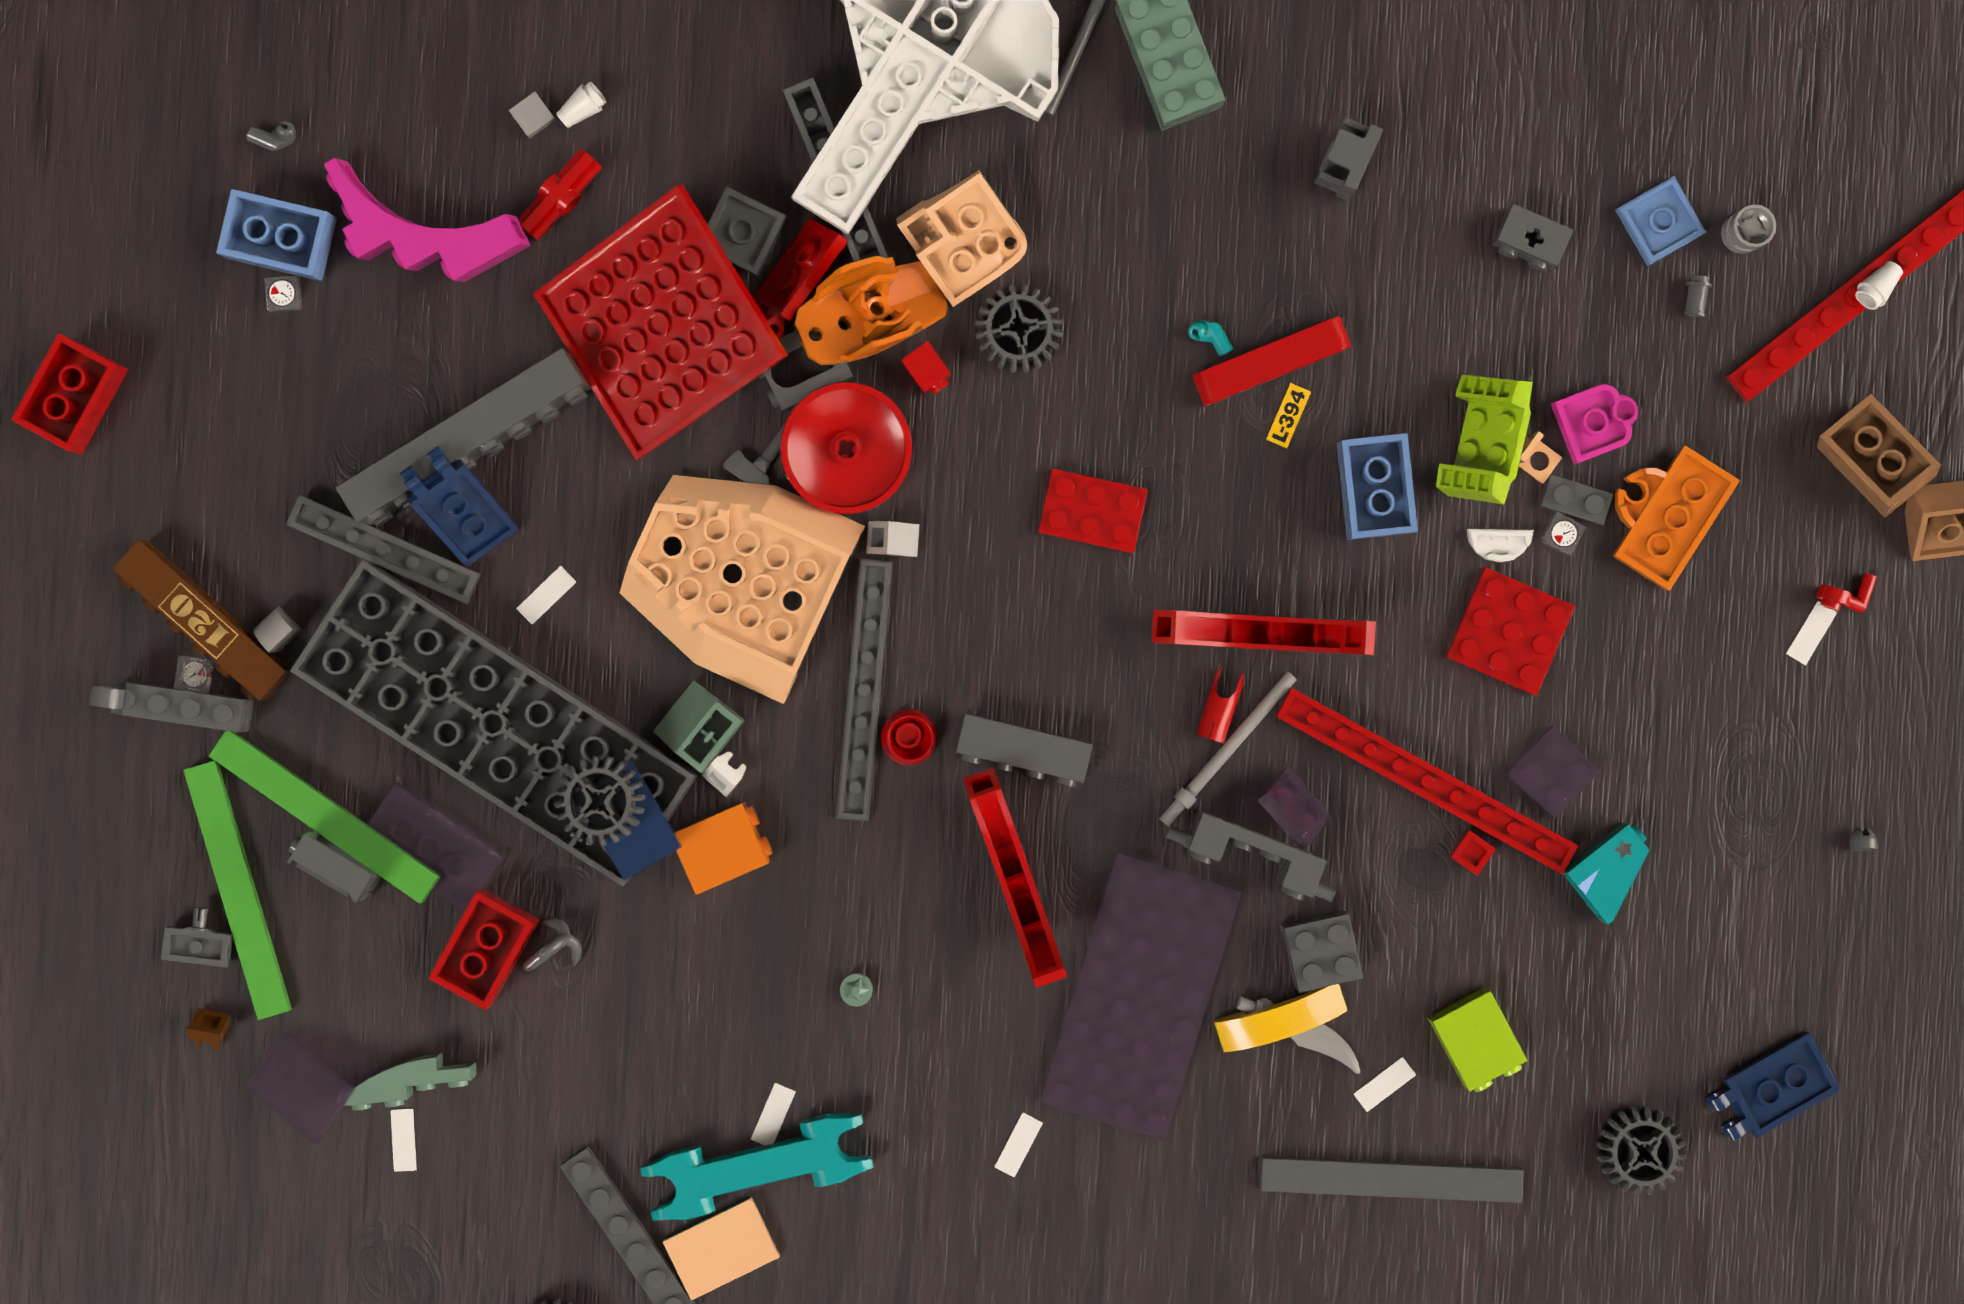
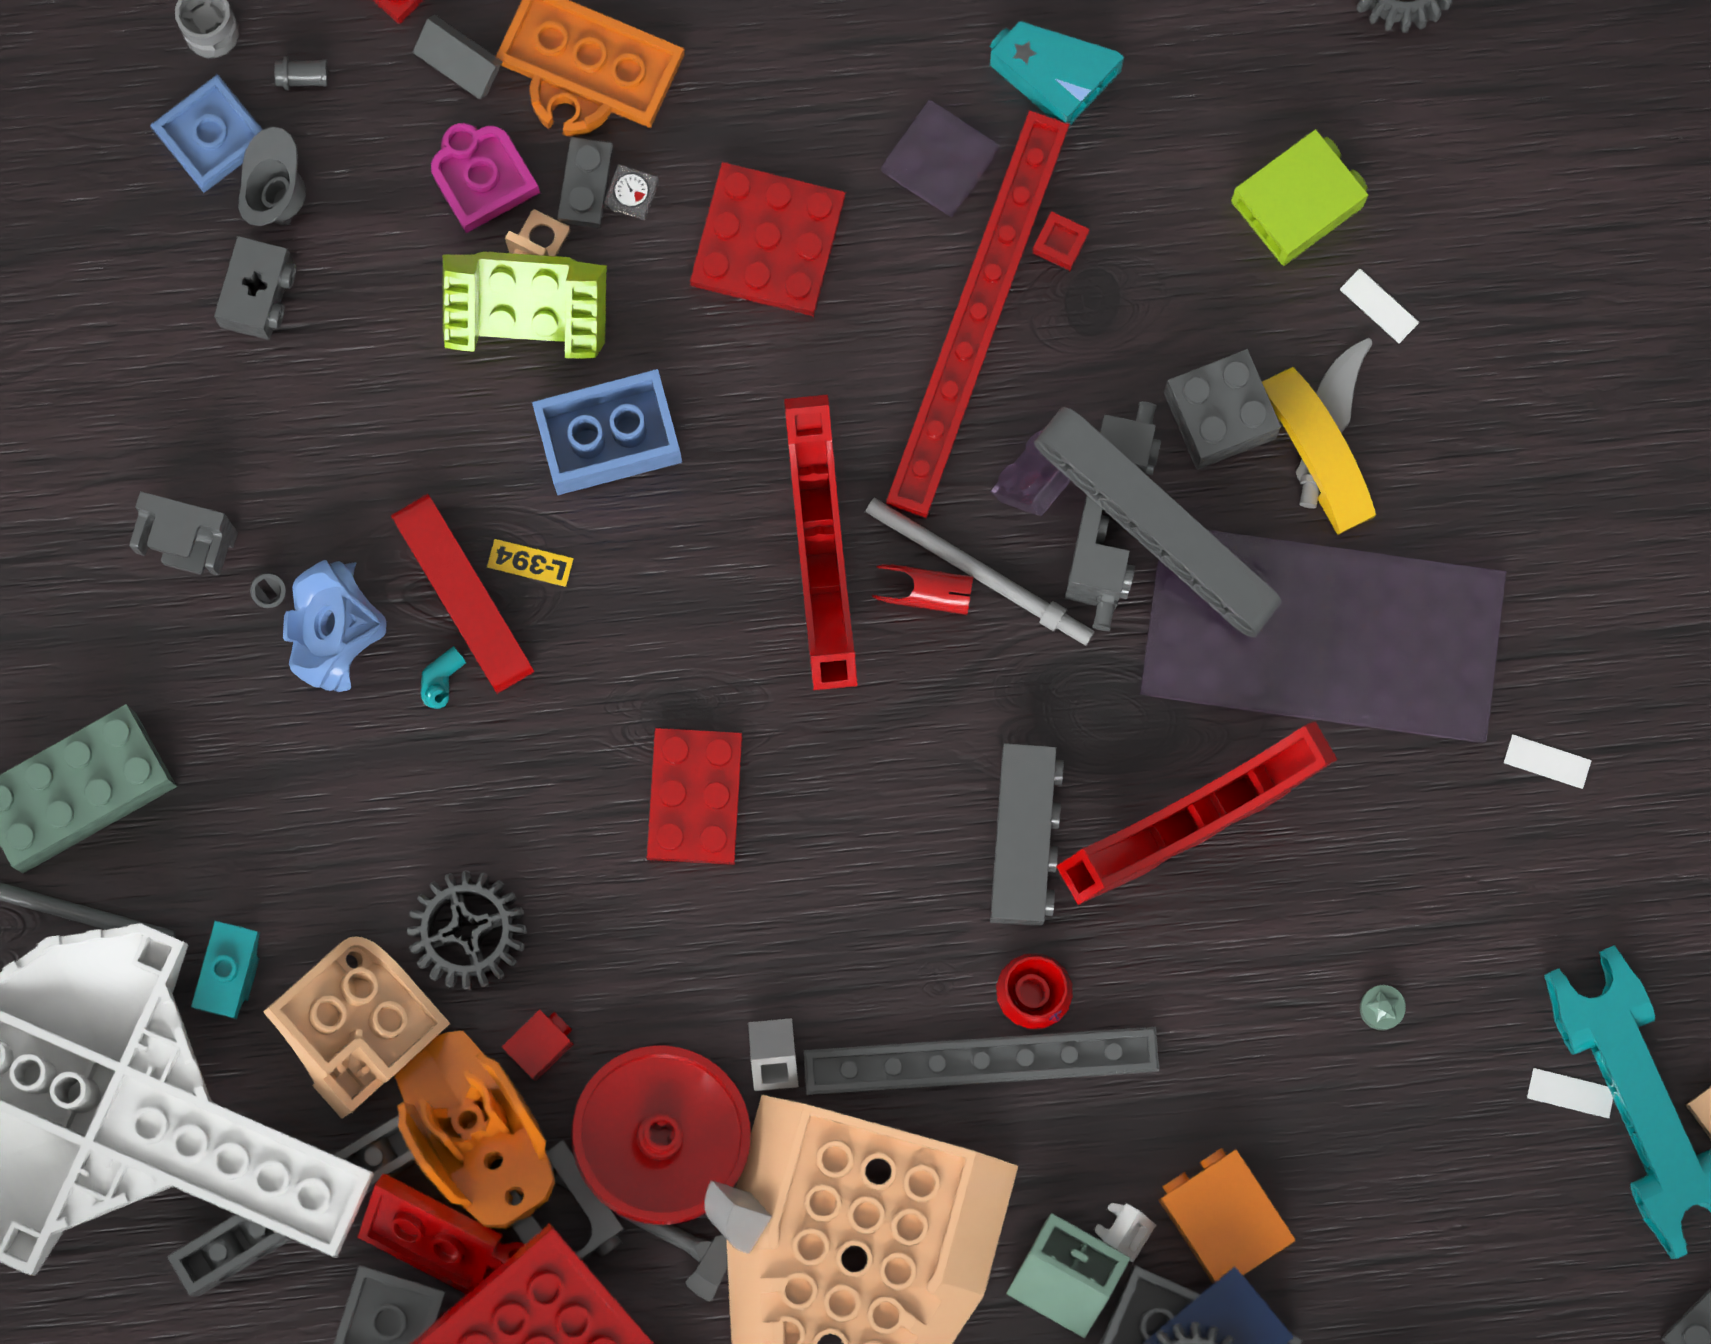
camera: 100 degrees left, 10 degrees down
(777, 493) = (736, 1215): none -> light grey brick
(1015, 148) = (227, 970): none -> teal brick
(1238, 886) = (1158, 522): none -> dark grey beam
(1262, 258) = (329, 625): none -> medium blue piece
(1294, 210) = (259, 595): none -> dark grey hinge
(1391, 1179) = (1500, 278): dark grey tile -> none
(1499, 544) = (657, 269): white tile -> none
(1614, 261) = (270, 179): none -> dark grey piece
(1691, 416) = (457, 56): none -> dark grey tile

